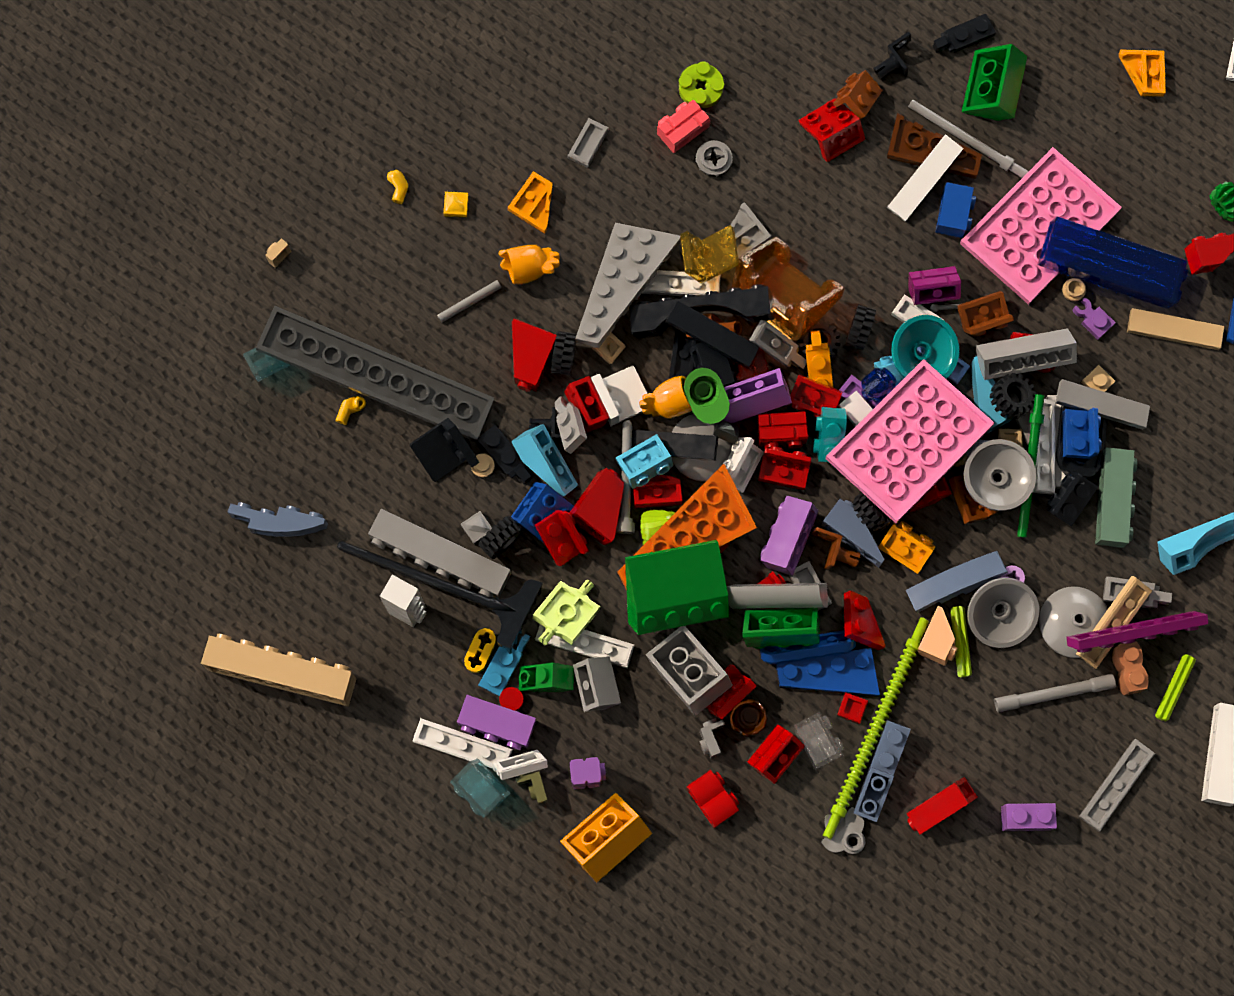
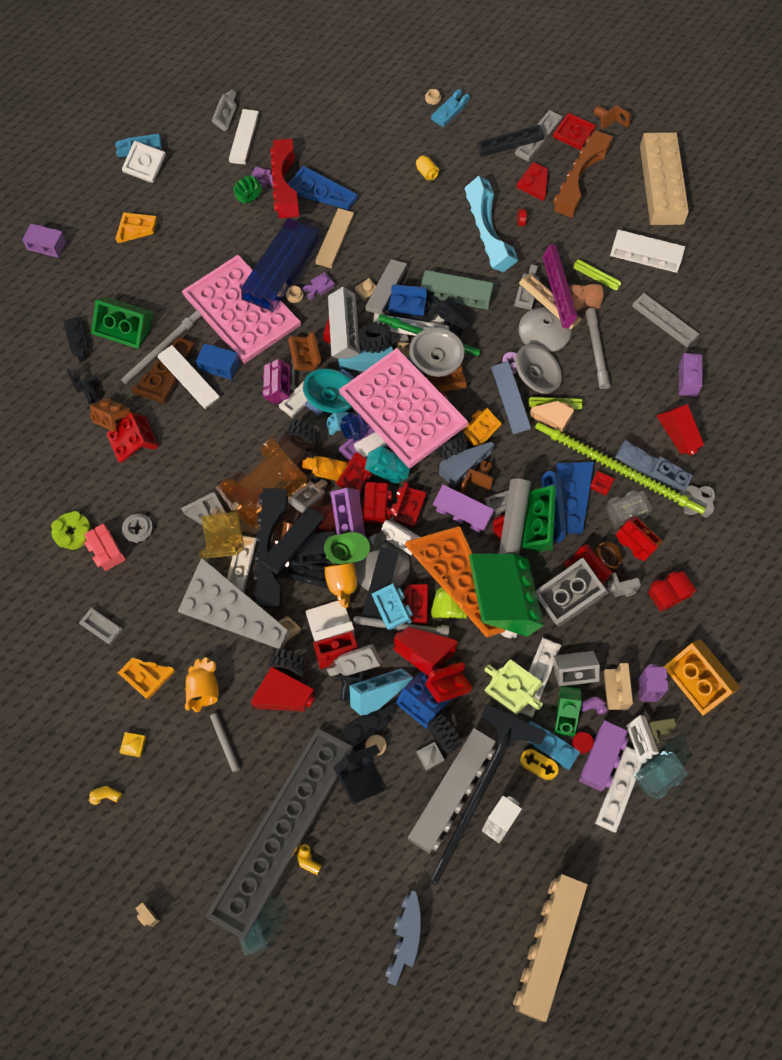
camera: 80 degrees left, 10 degrees down
(559, 709) = (595, 703): none -> medium lavender arm
(580, 735) = (618, 687): none -> tan bracket
(860, 621) = (536, 466): red wing -> none

